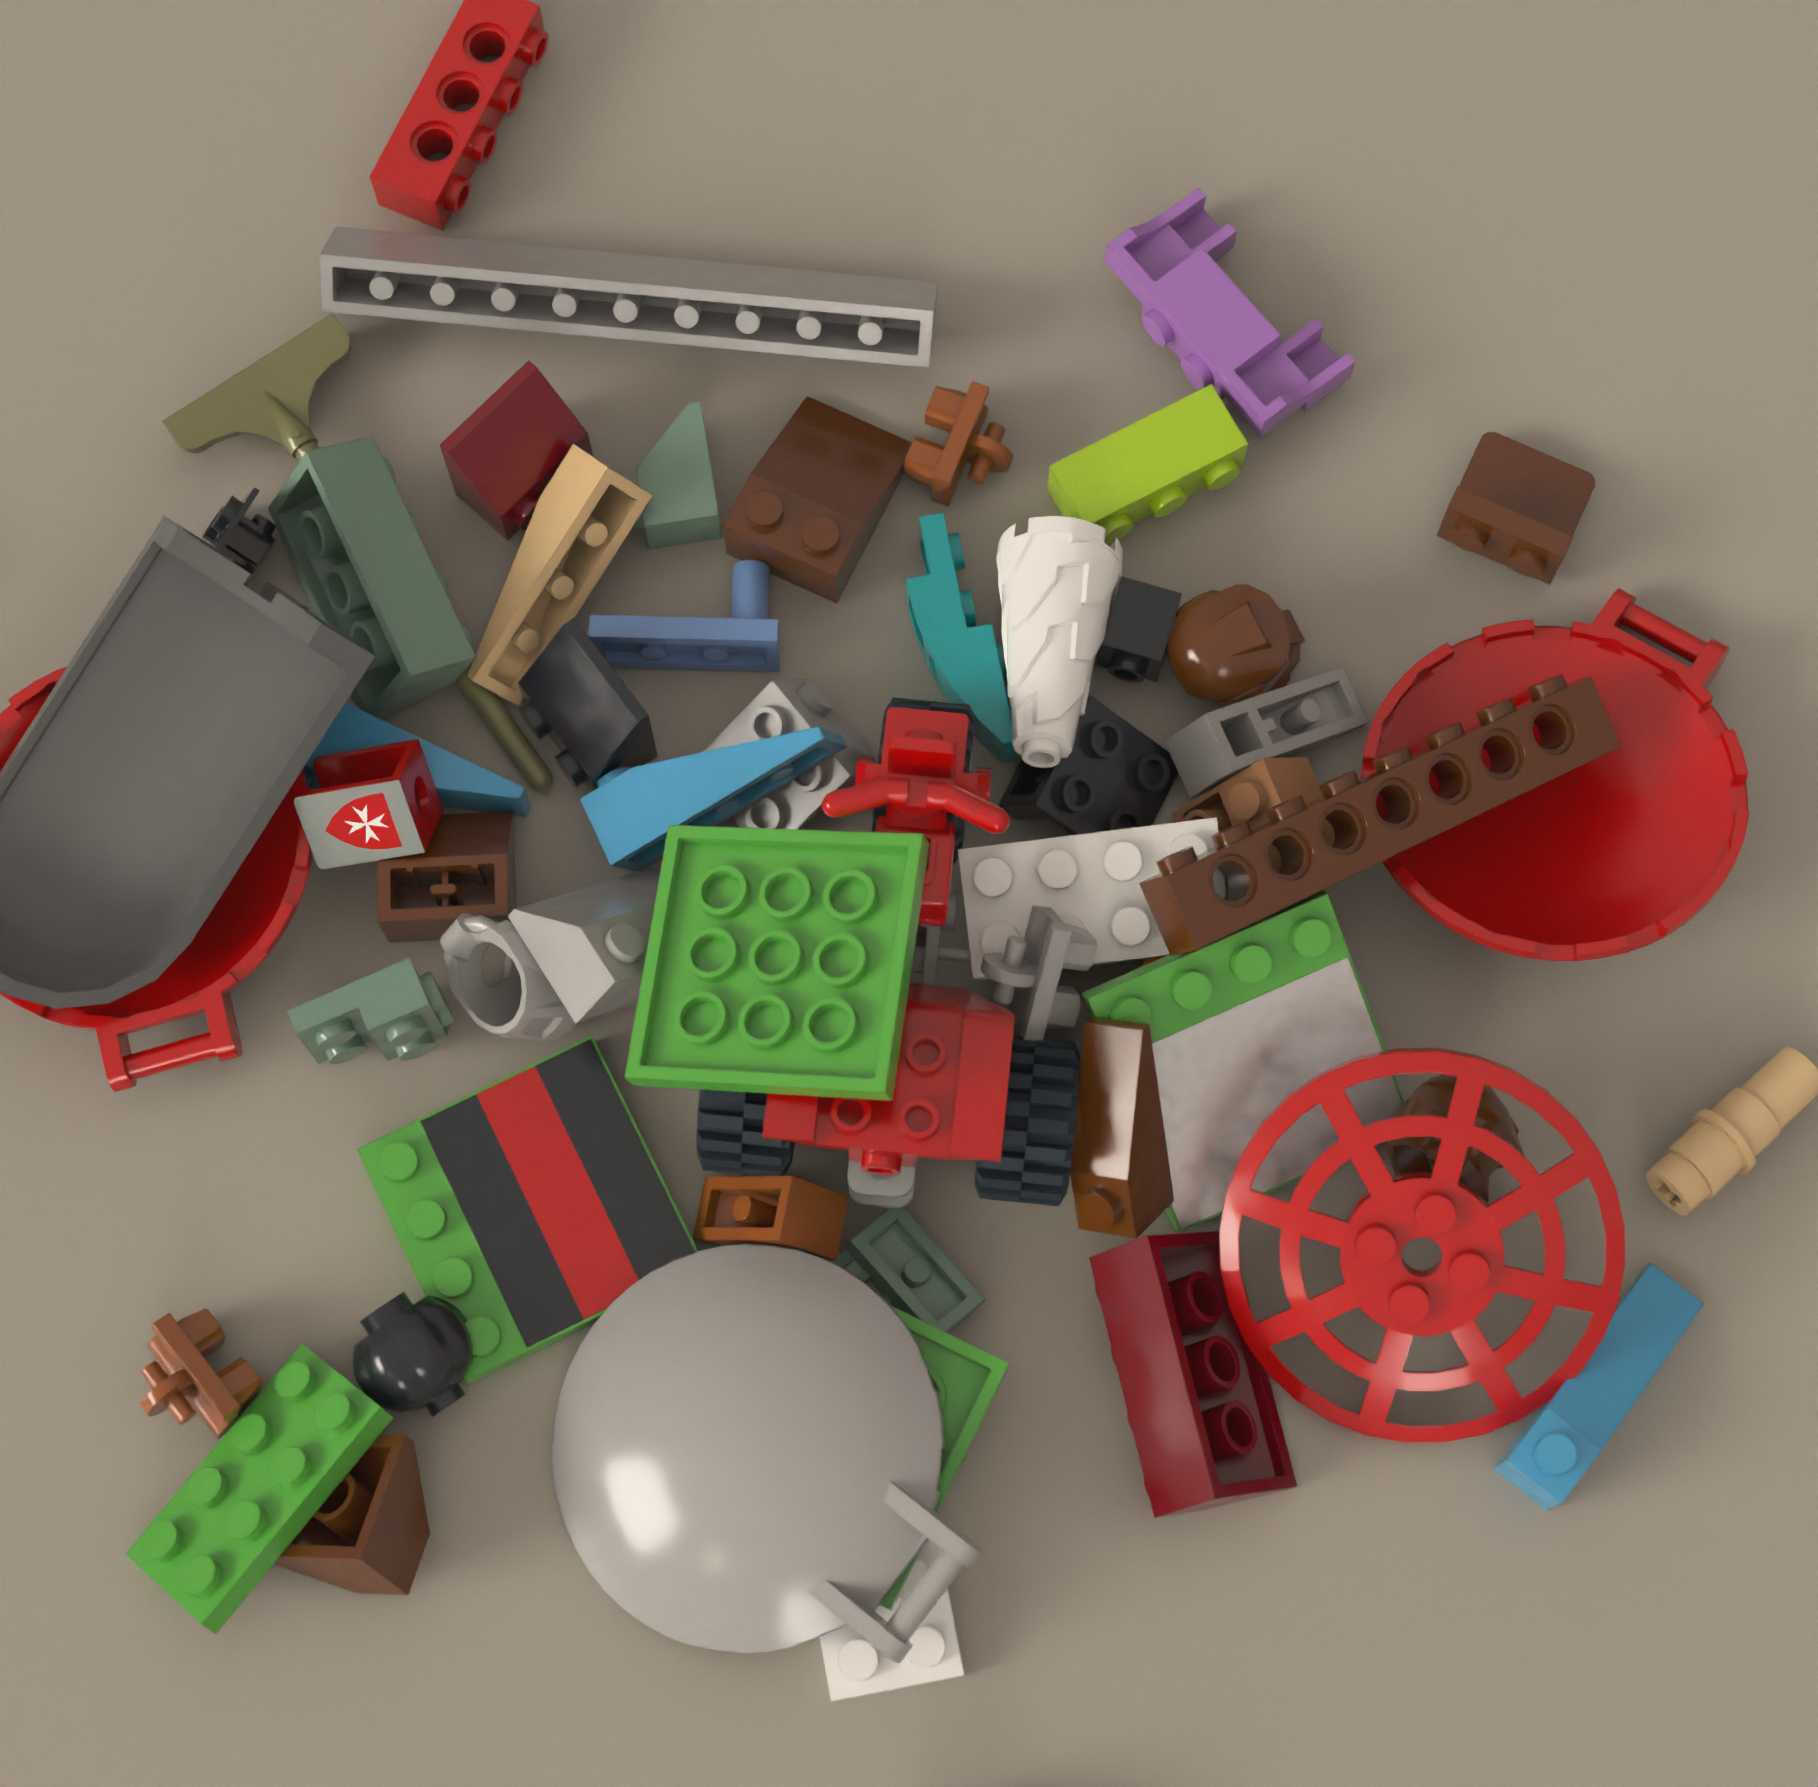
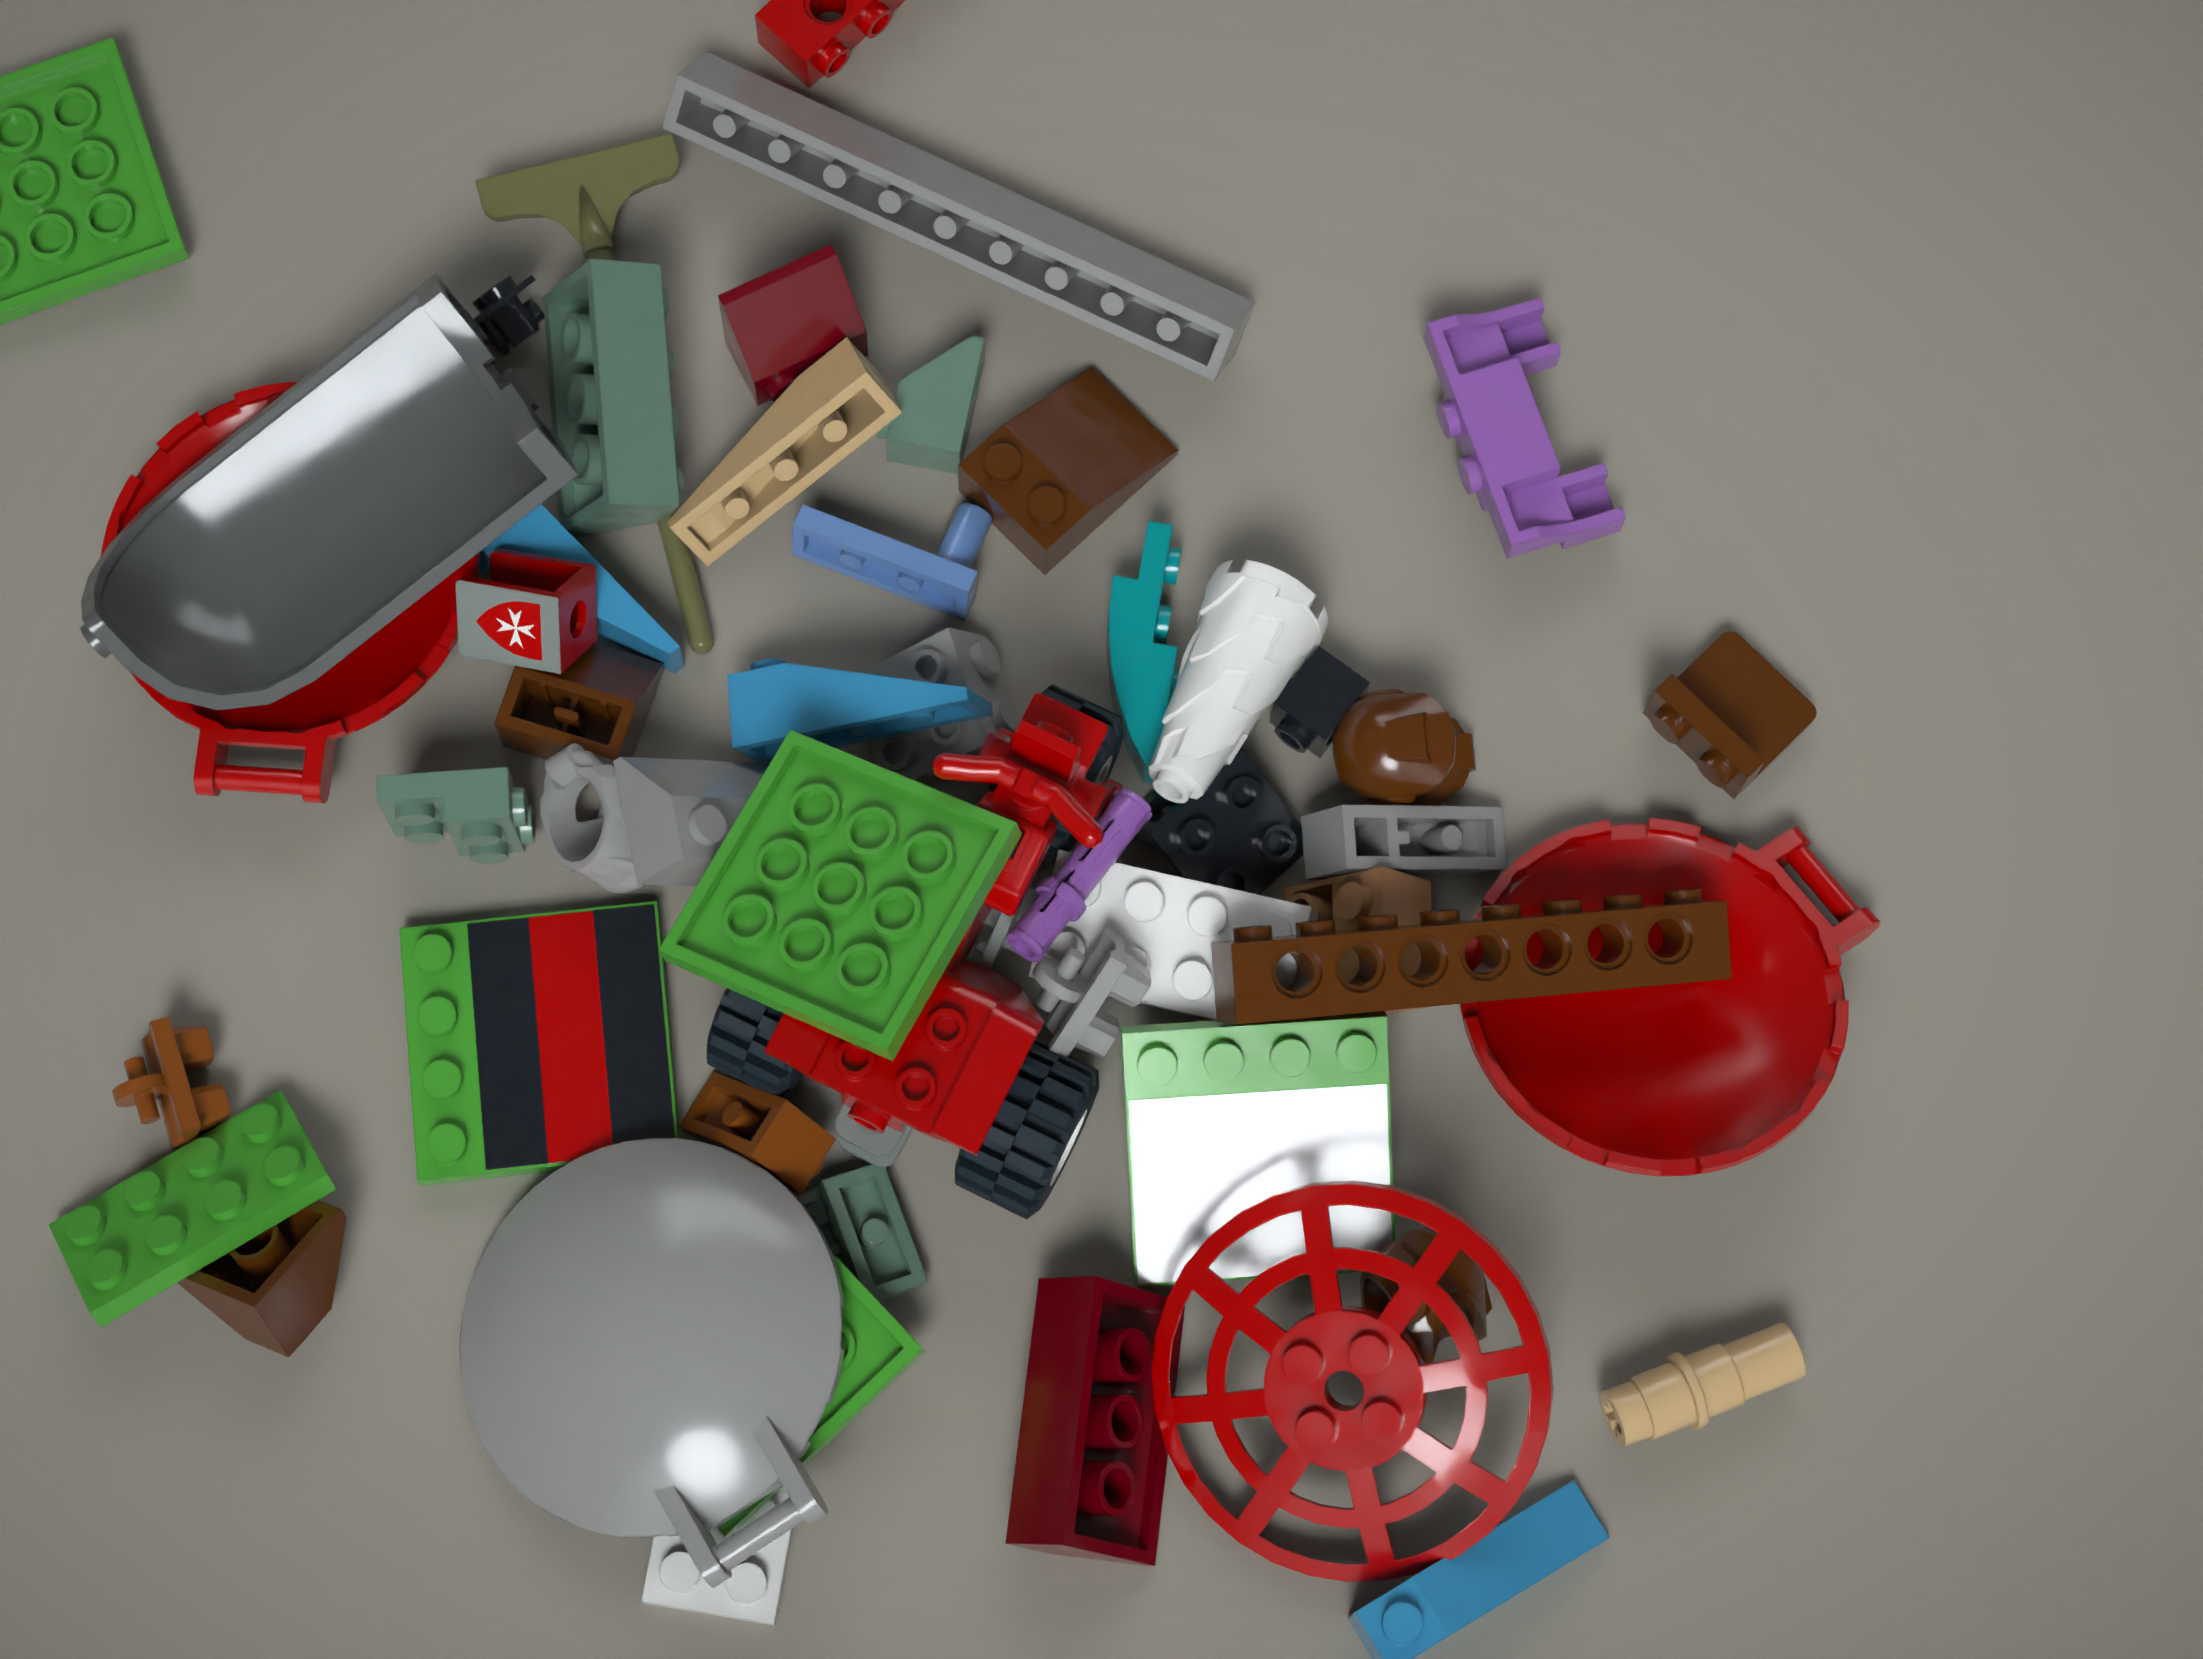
camera: 15 degrees right, 0 degrees up
(413, 1354) = (378, 1138): black plant -> none
(584, 709) = (763, 593): black slope -> none
(963, 418) = (1230, 443): dark orange hips -> none
(983, 889) = (1064, 894): none -> medium lavender pin
(1119, 1132) = (1105, 1175): reddish brown slope -> none
(1150, 465) = (1389, 549): lime brick -> none

